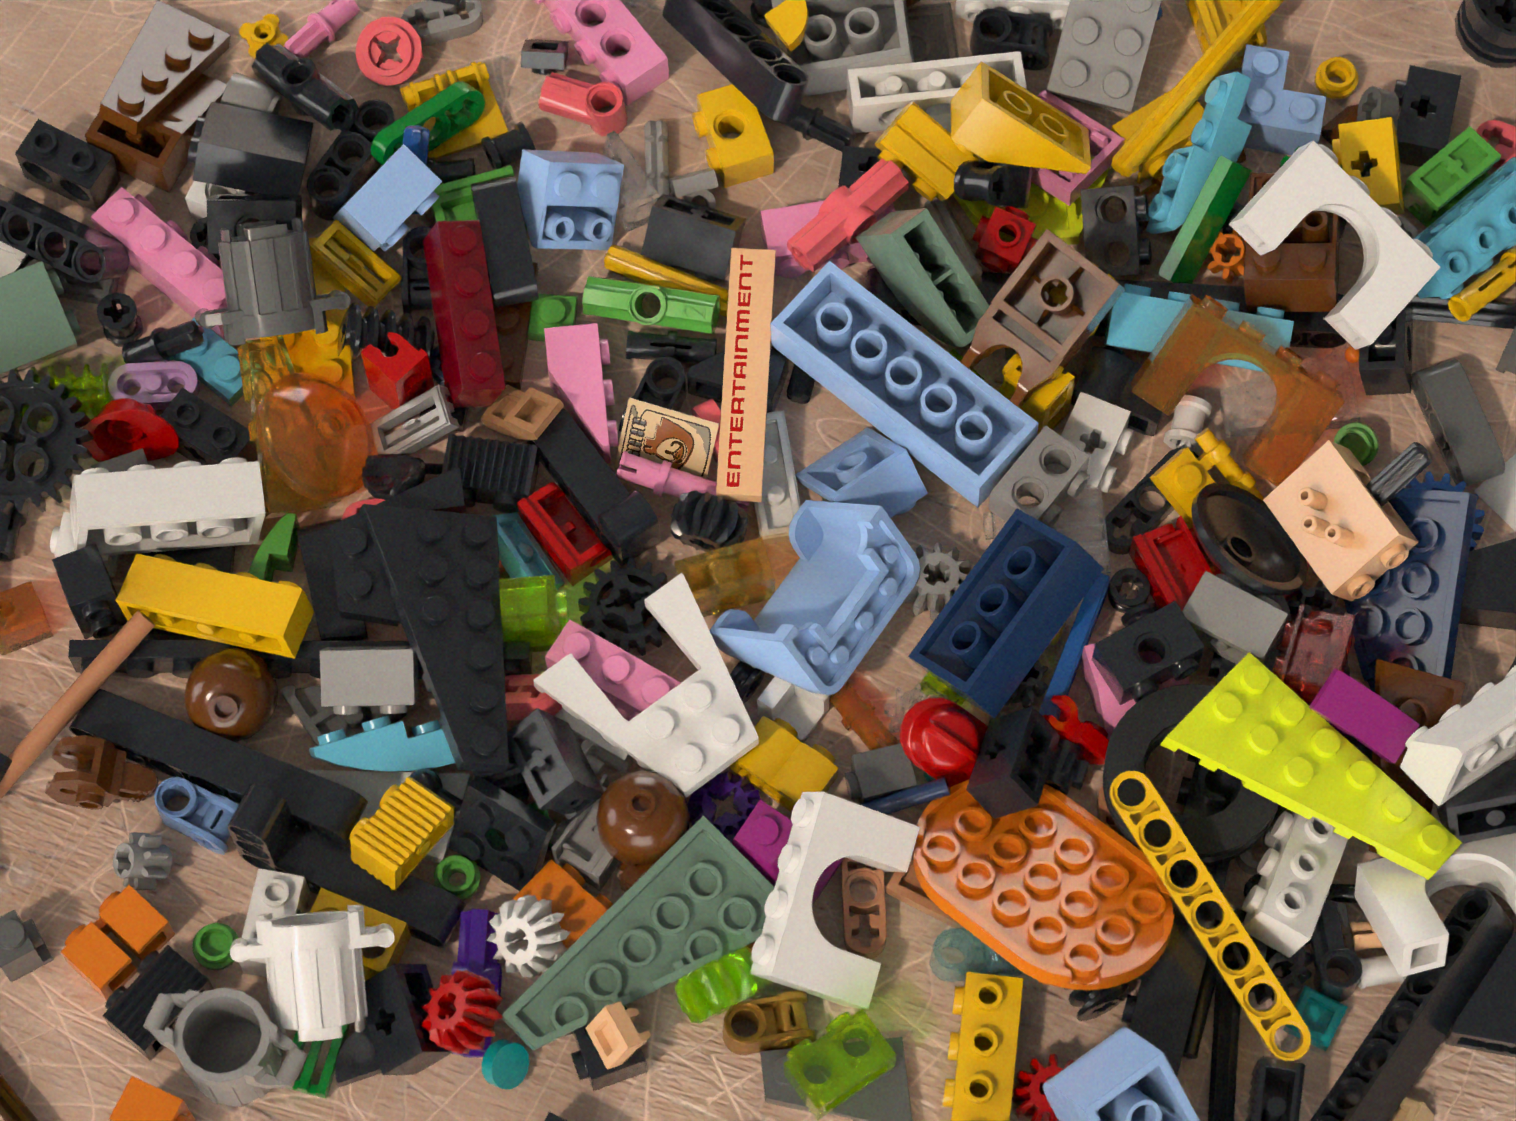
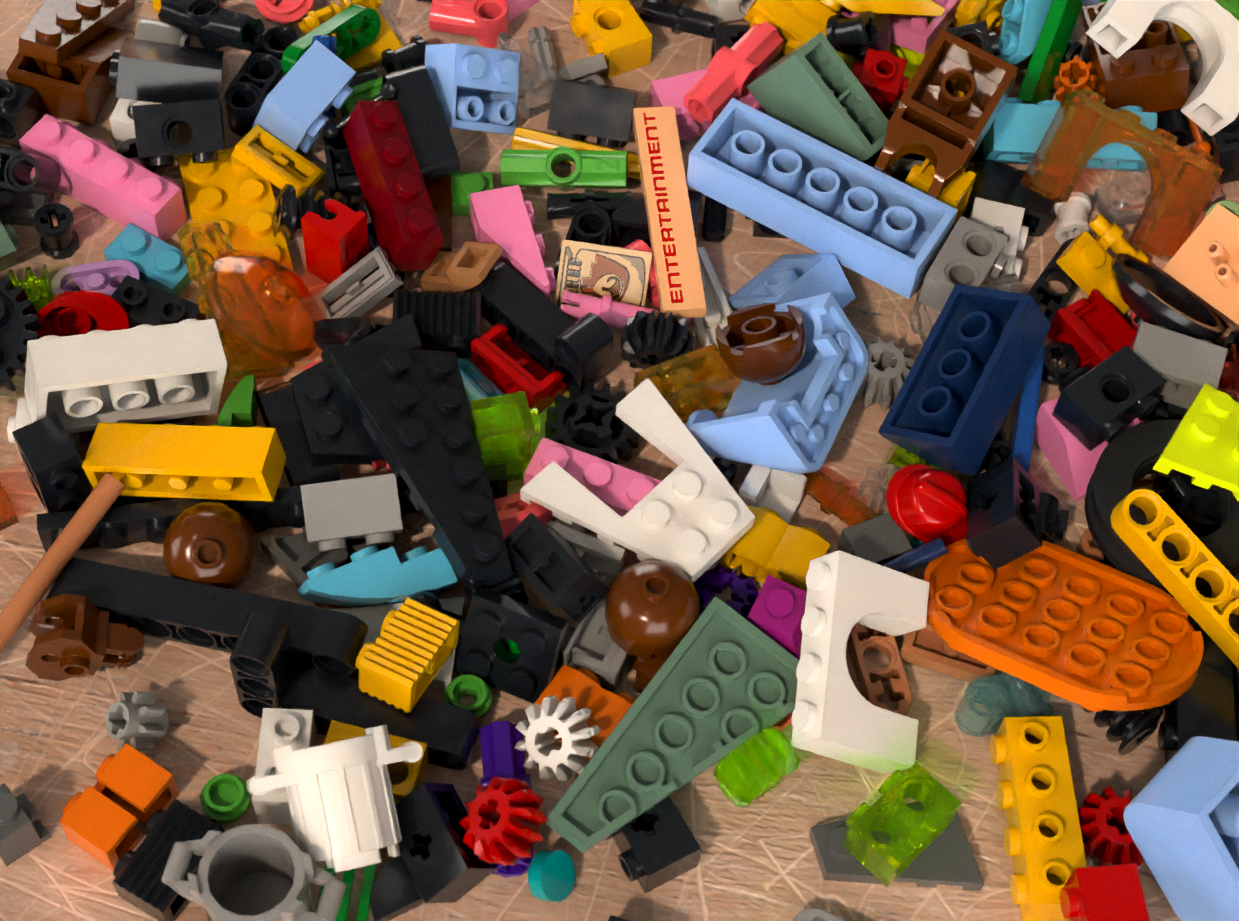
camera: 15 degrees left, 10 degrees down
(163, 343) = (104, 243): black axle -> none
(203, 818) = (197, 674): medium blue piece -> none
(269, 284) = (202, 170): dark grey container -> none
(471, 209) = (387, 92): none -> black hinge
(615, 1034) = (668, 823): light nougat tile -> none
(772, 1023) = (821, 794): pearl gold piece -> none
(808, 543) = (762, 343): none -> reddish brown cylinder
(1087, 735) = (1060, 484): red plate -> none

